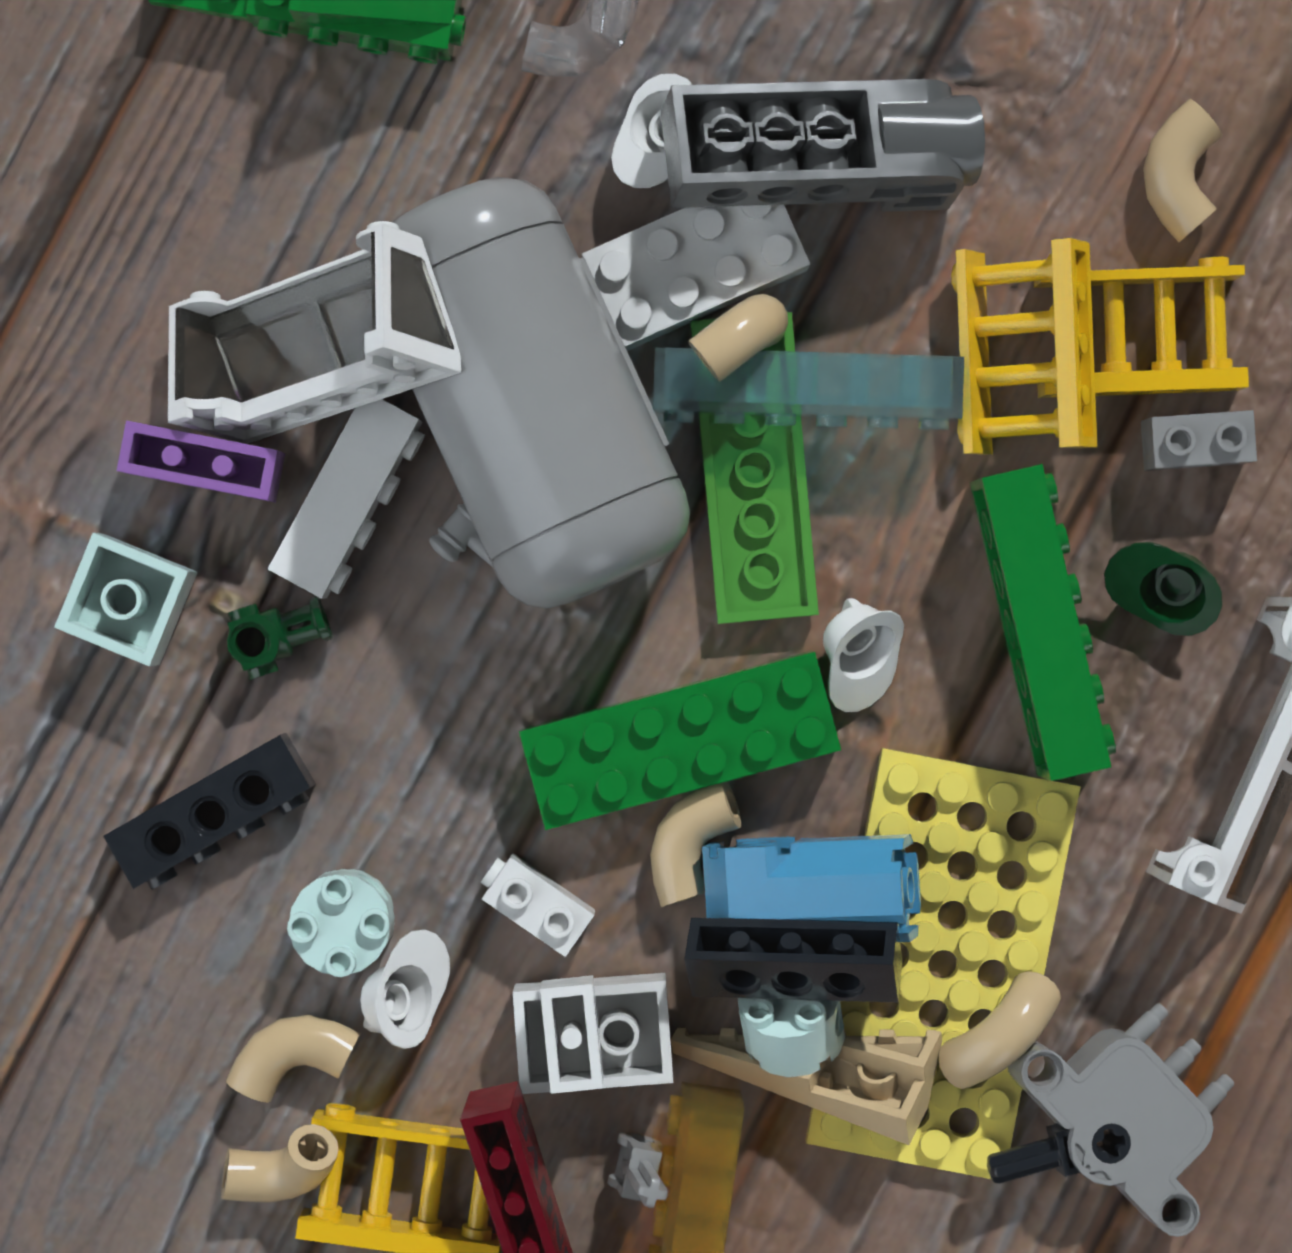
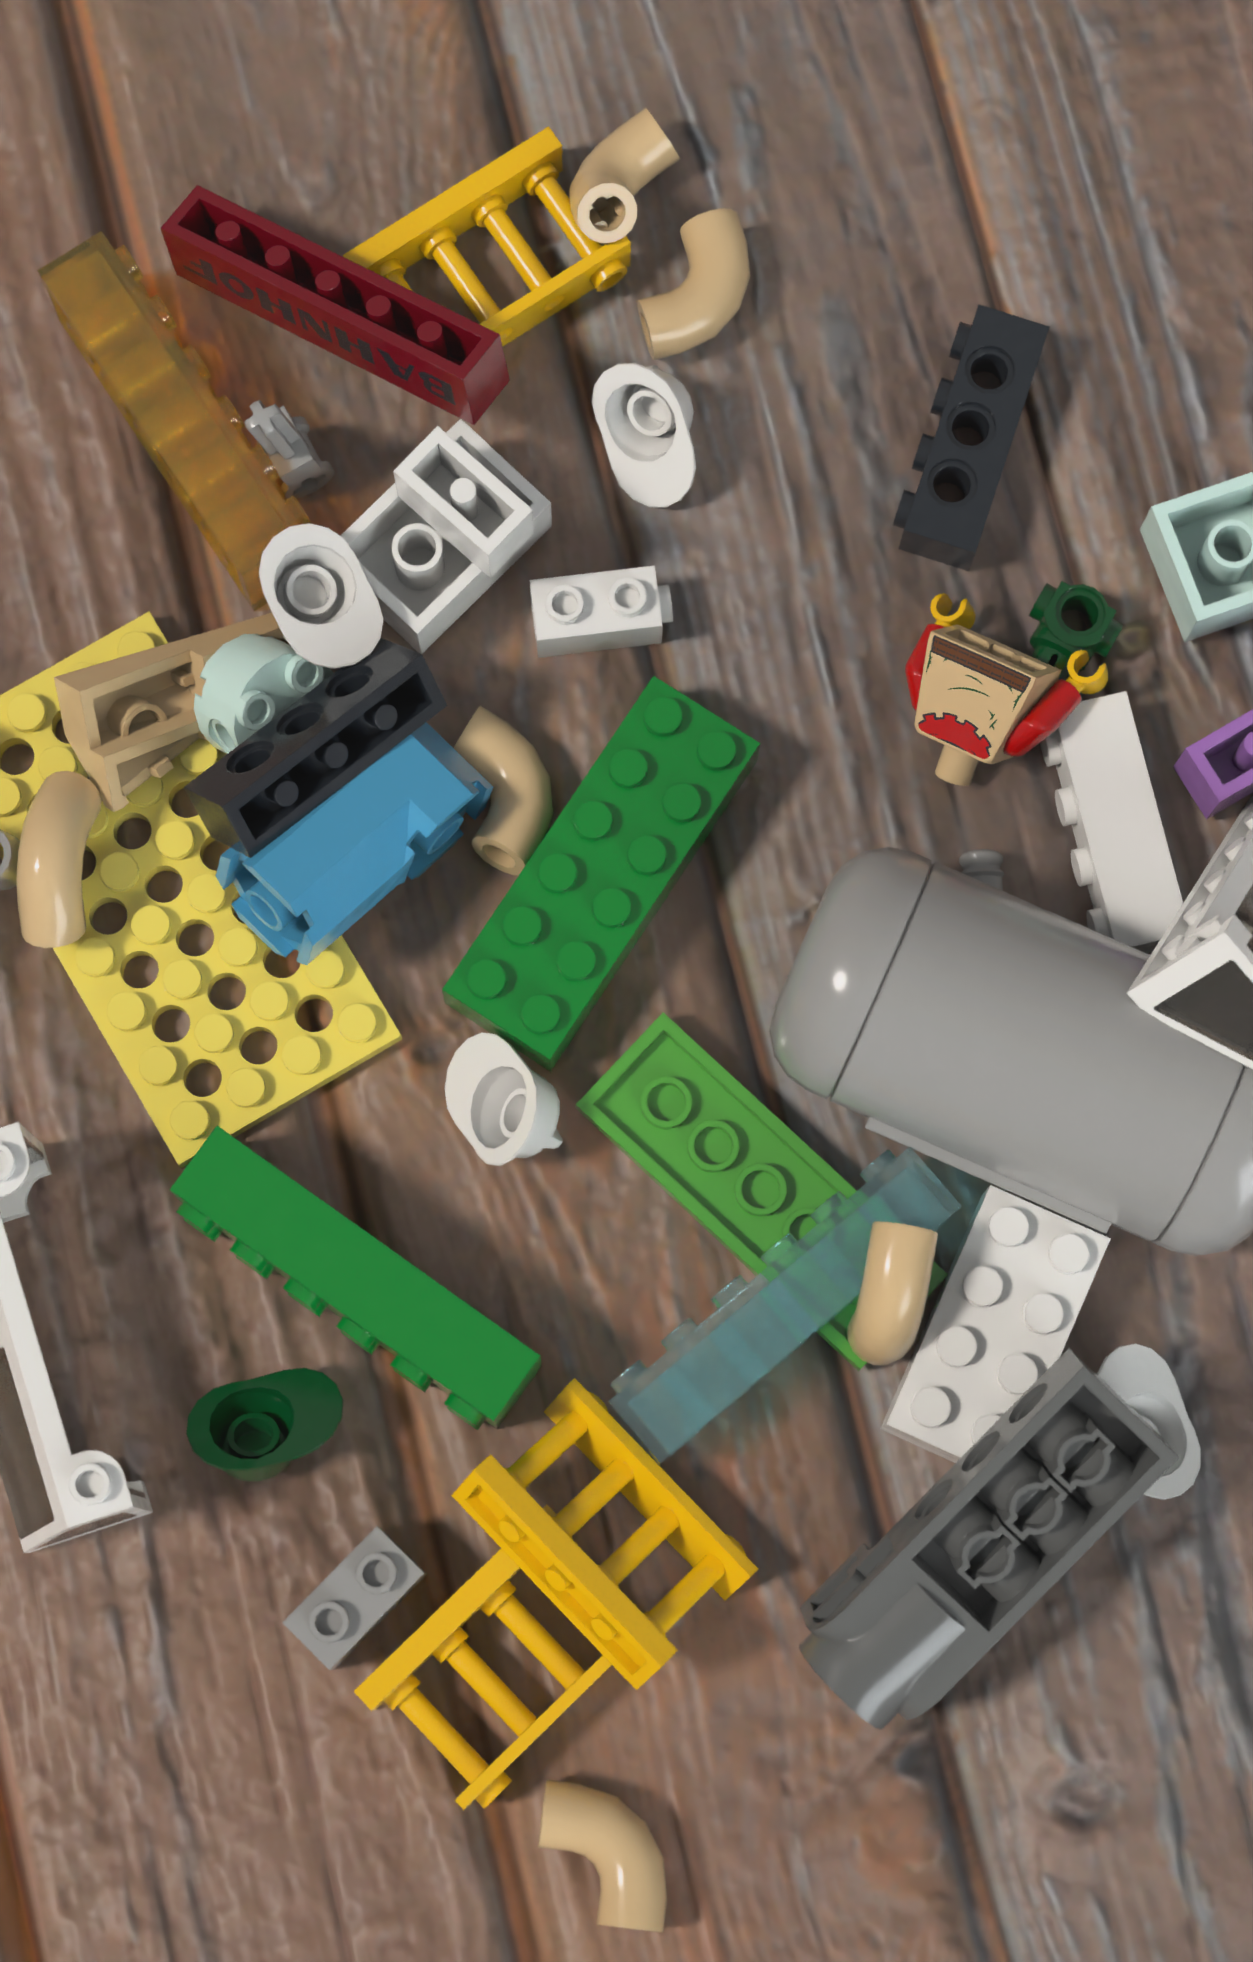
camera: 135 degrees right, 10 degrees down
(341, 922) = (762, 440): light aqua brick -> none
(355, 644) = (985, 695): none -> torso
(709, 1052) = (320, 596): none -> white piece

